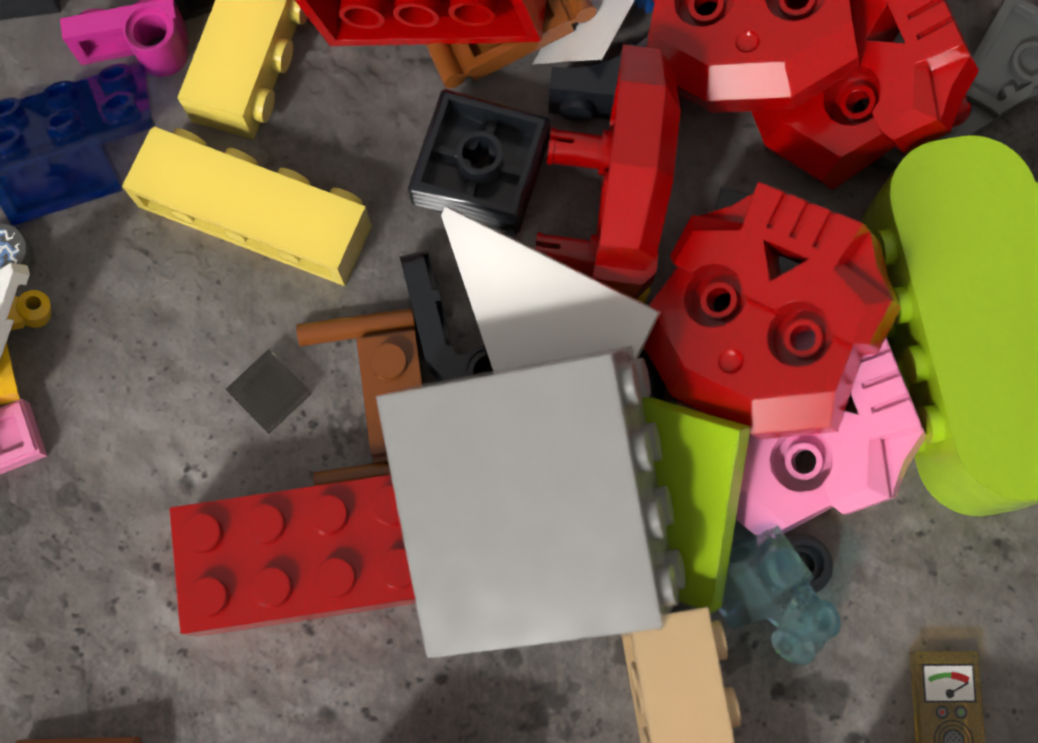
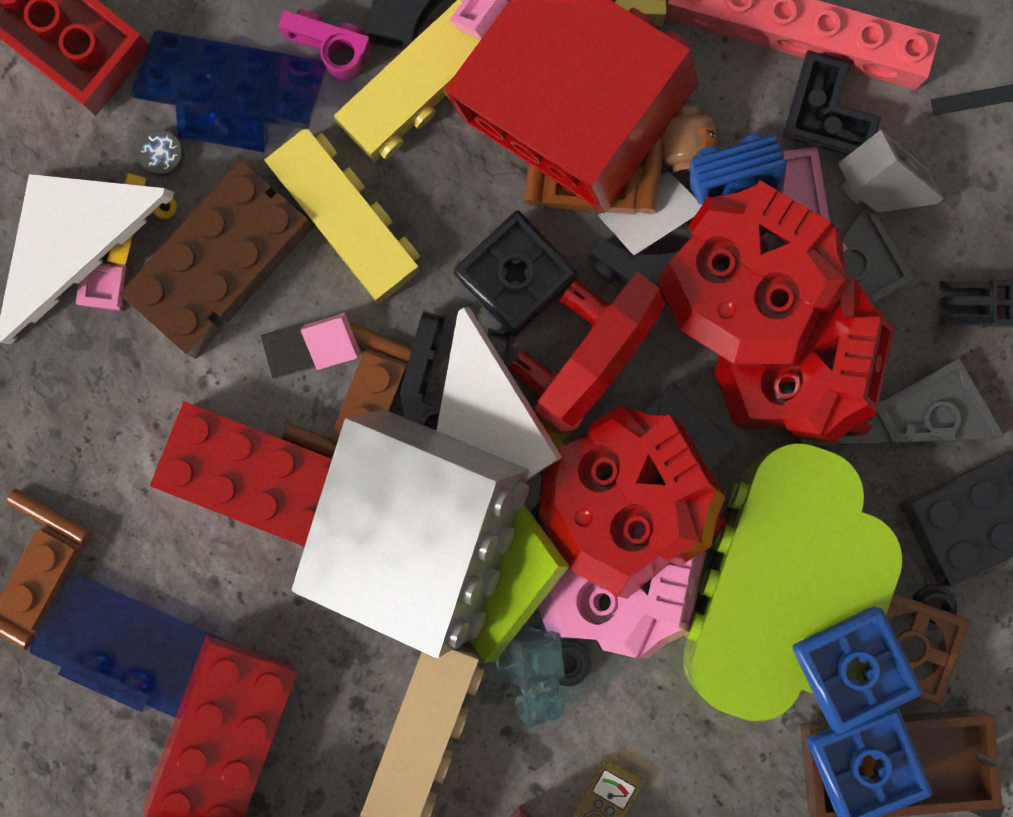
camera: 30 degrees right, 10 degrees up
(125, 327) = (216, 259): none -> reddish brown piece
(311, 350) = (330, 341): none -> bright pink tile

